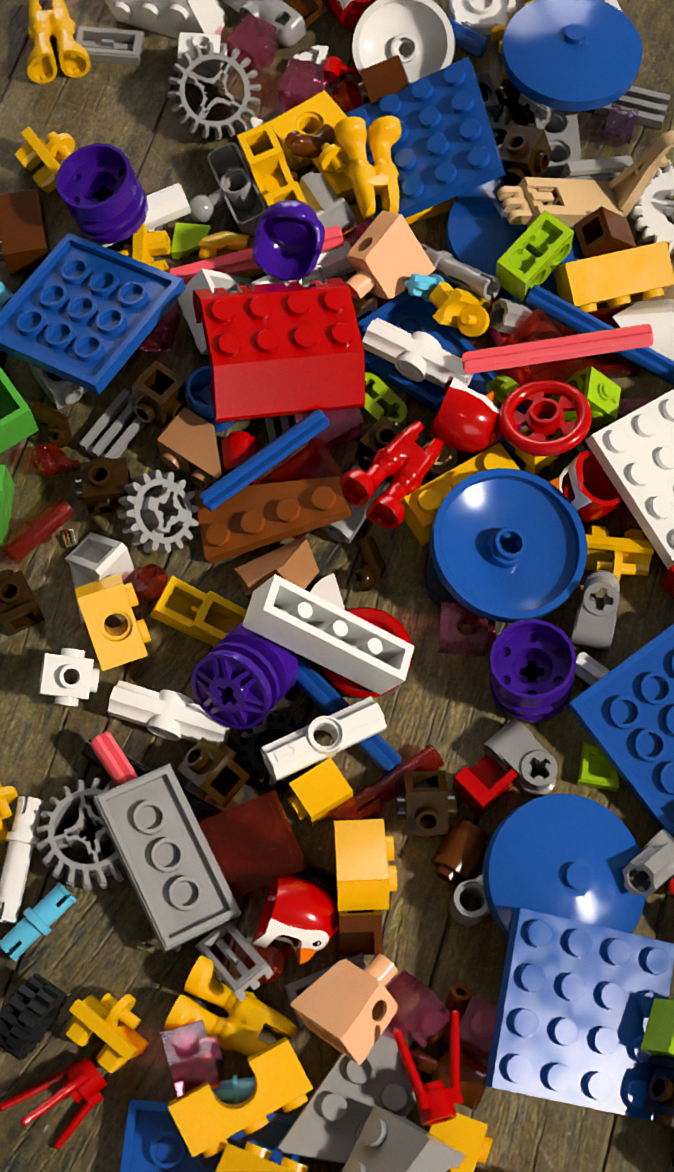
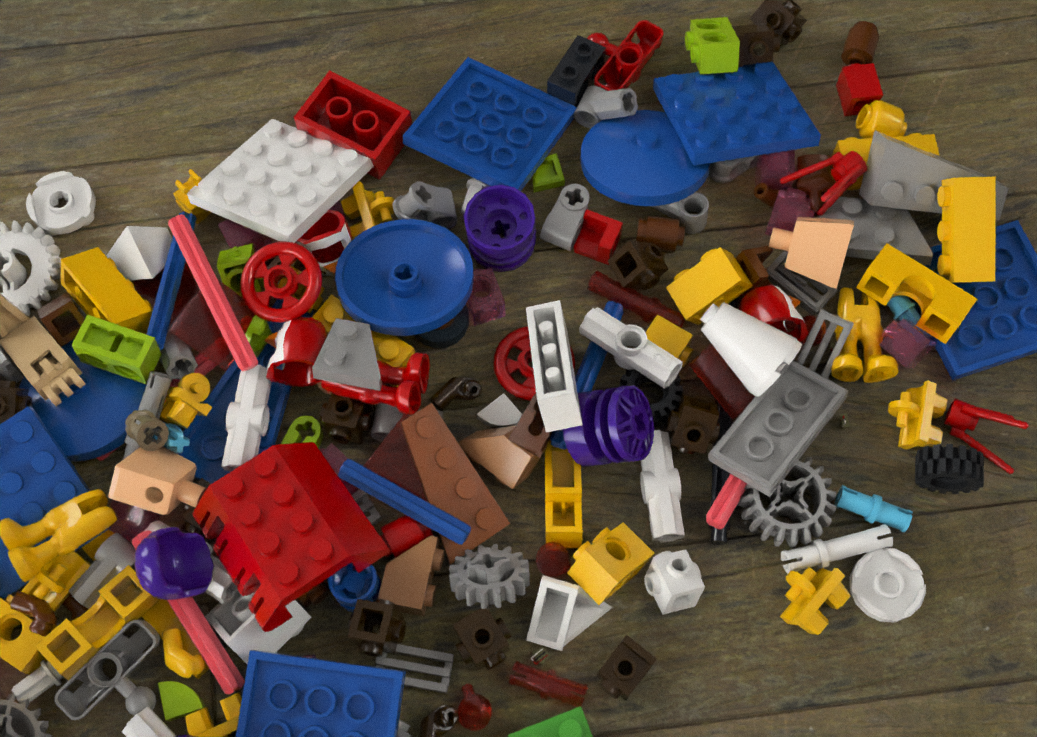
camera: 115 degrees left, 0 degrees up
(257, 853) = (749, 346): none -> white cone
(430, 449) = (348, 356): none -> light grey wing
(434, 259) = (137, 433): none -> dark tan bush

